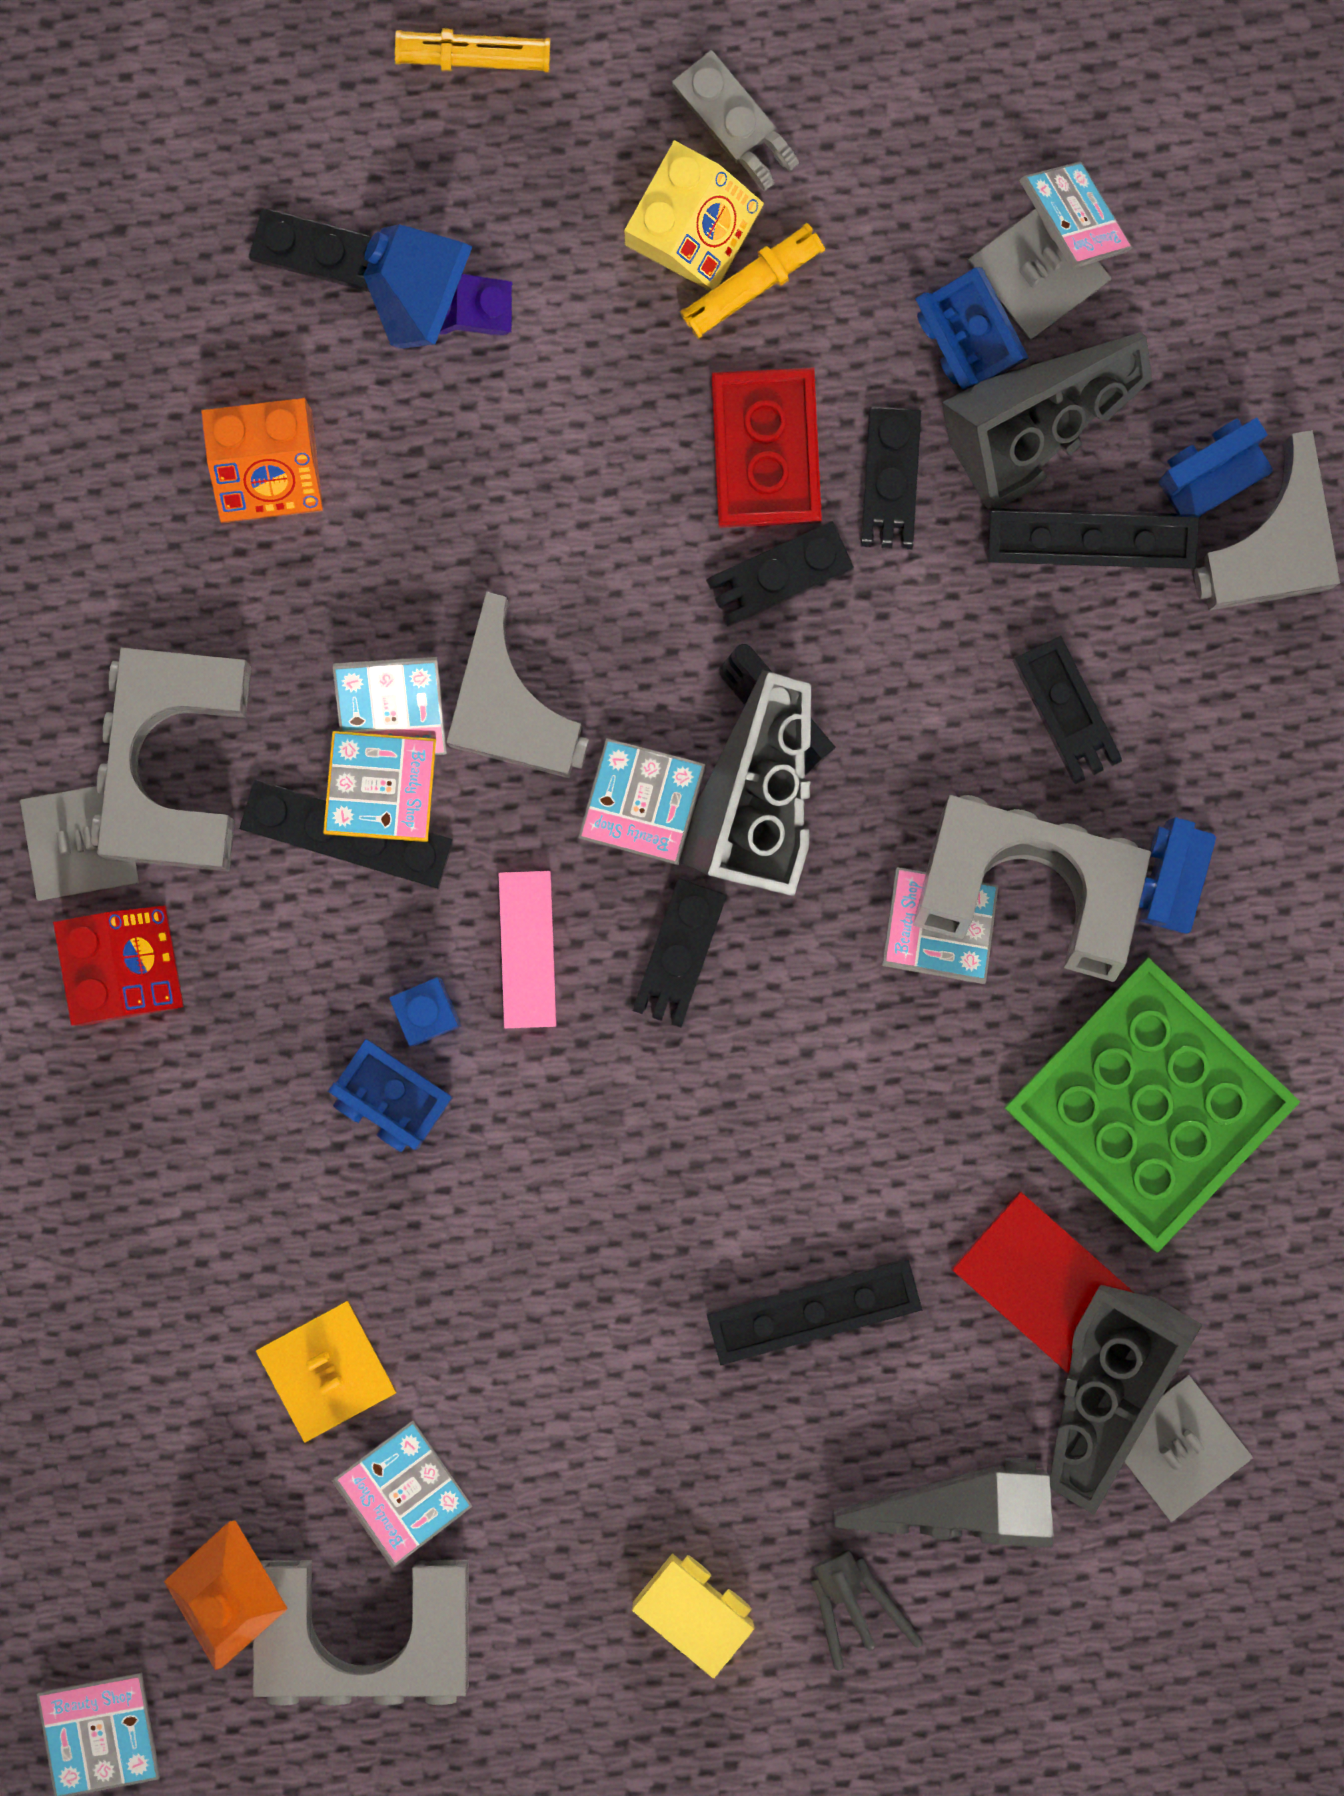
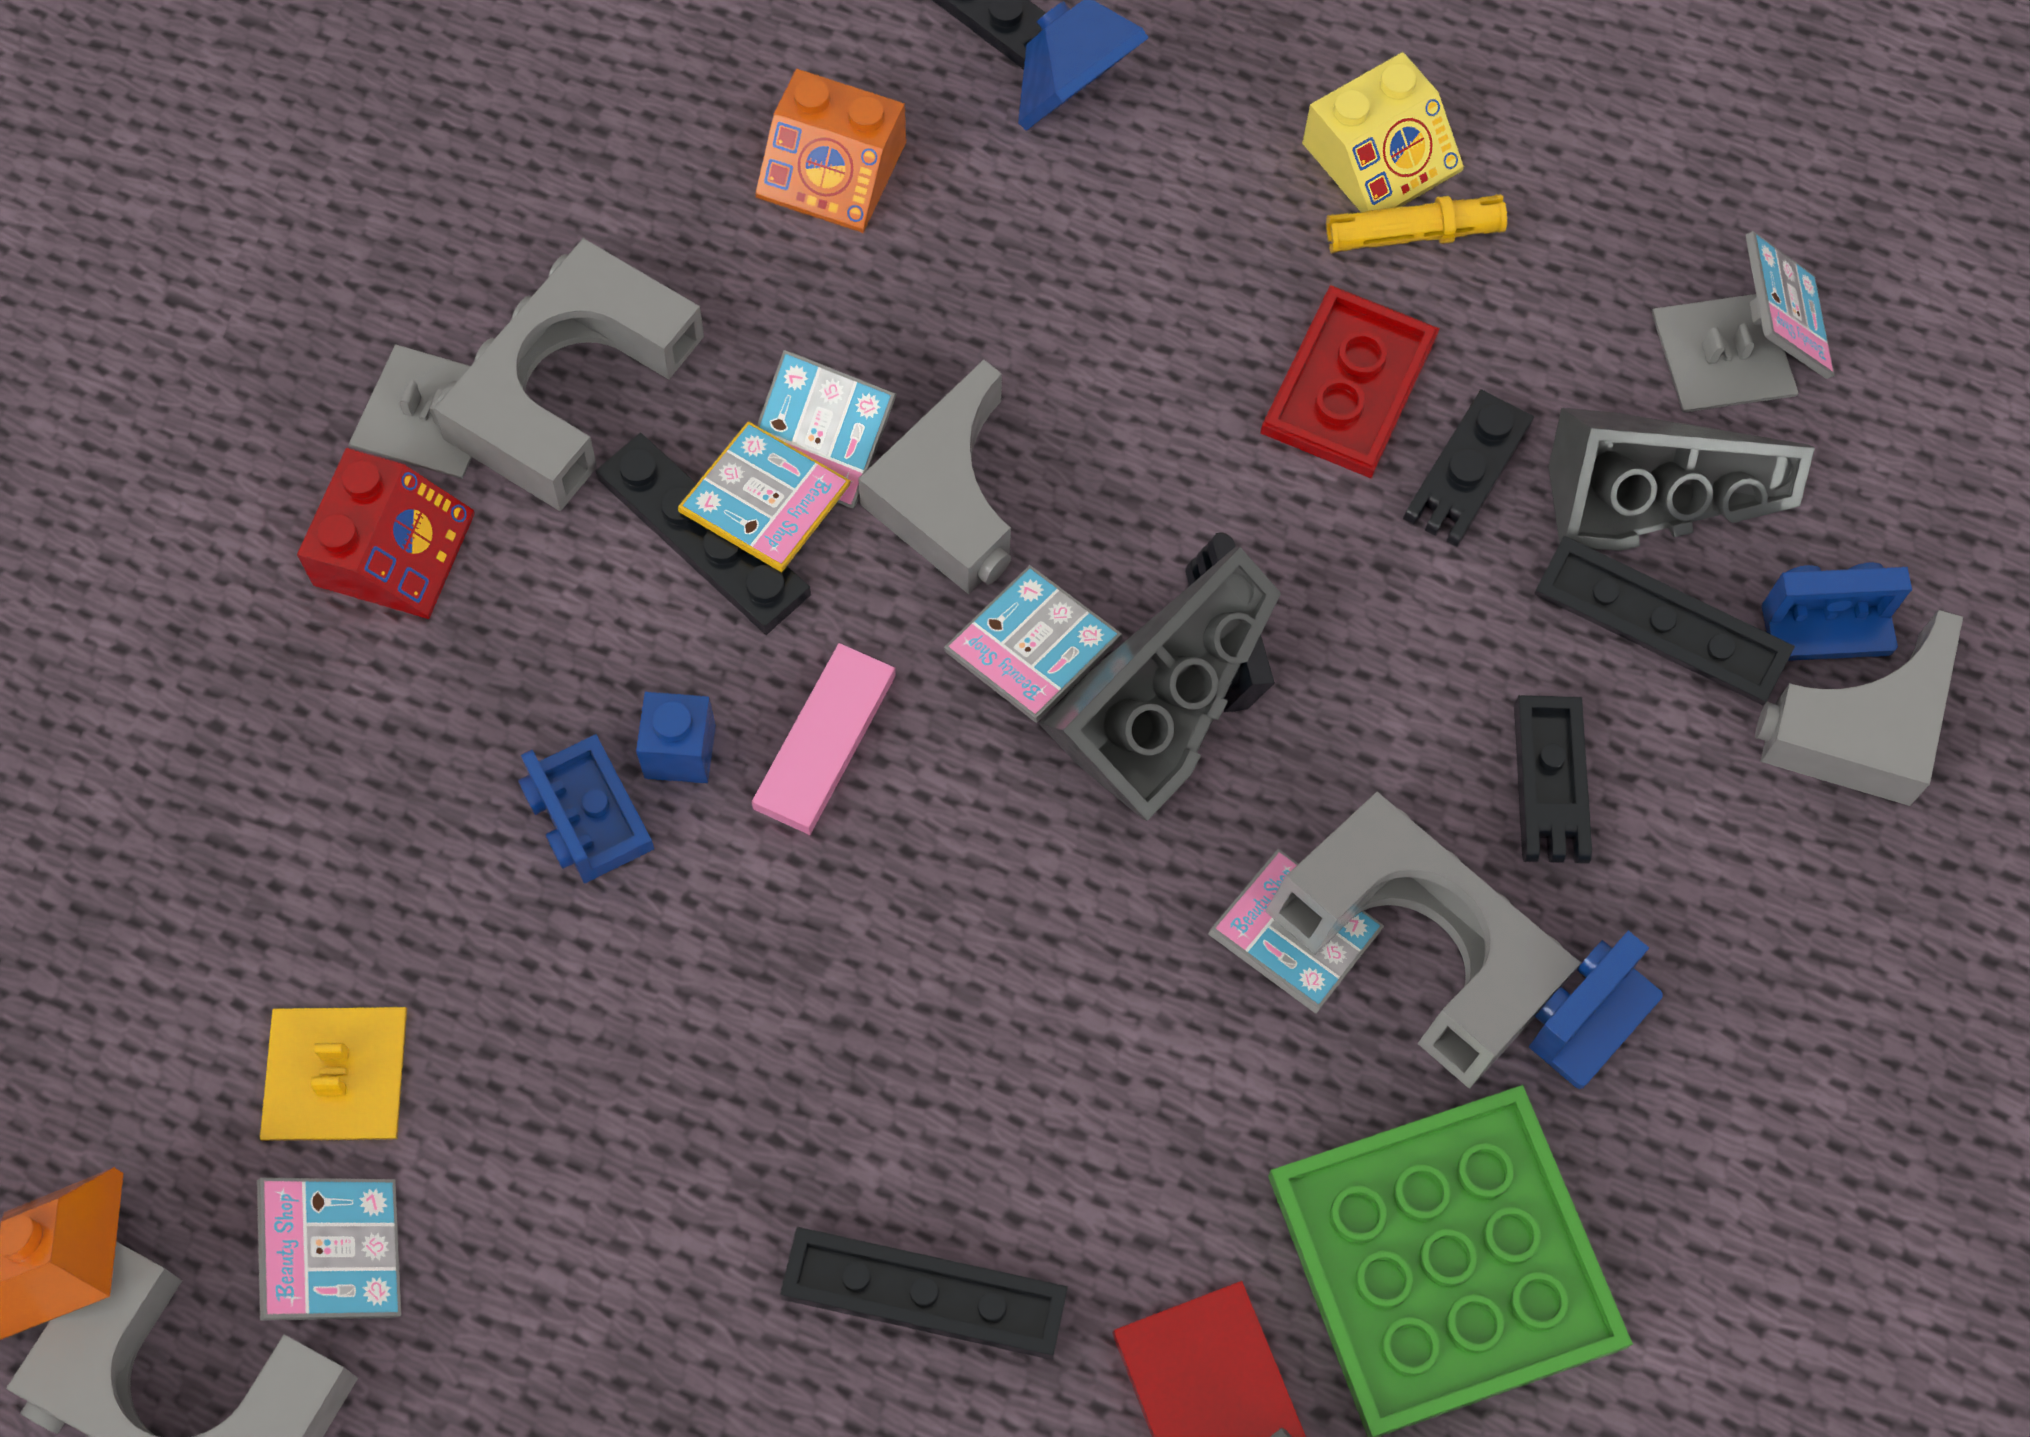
camera: 25 degrees right, 20 degrees down
(480, 306) = (1120, 117): dark purple bracket -> none
(680, 950) = (989, 821): black hinge -> none
(732, 117) = (1471, 81): light grey hinge -> none
(782, 573) = (1303, 502): black hinge -> none
(970, 329) = (1625, 362): blue bracket -> none

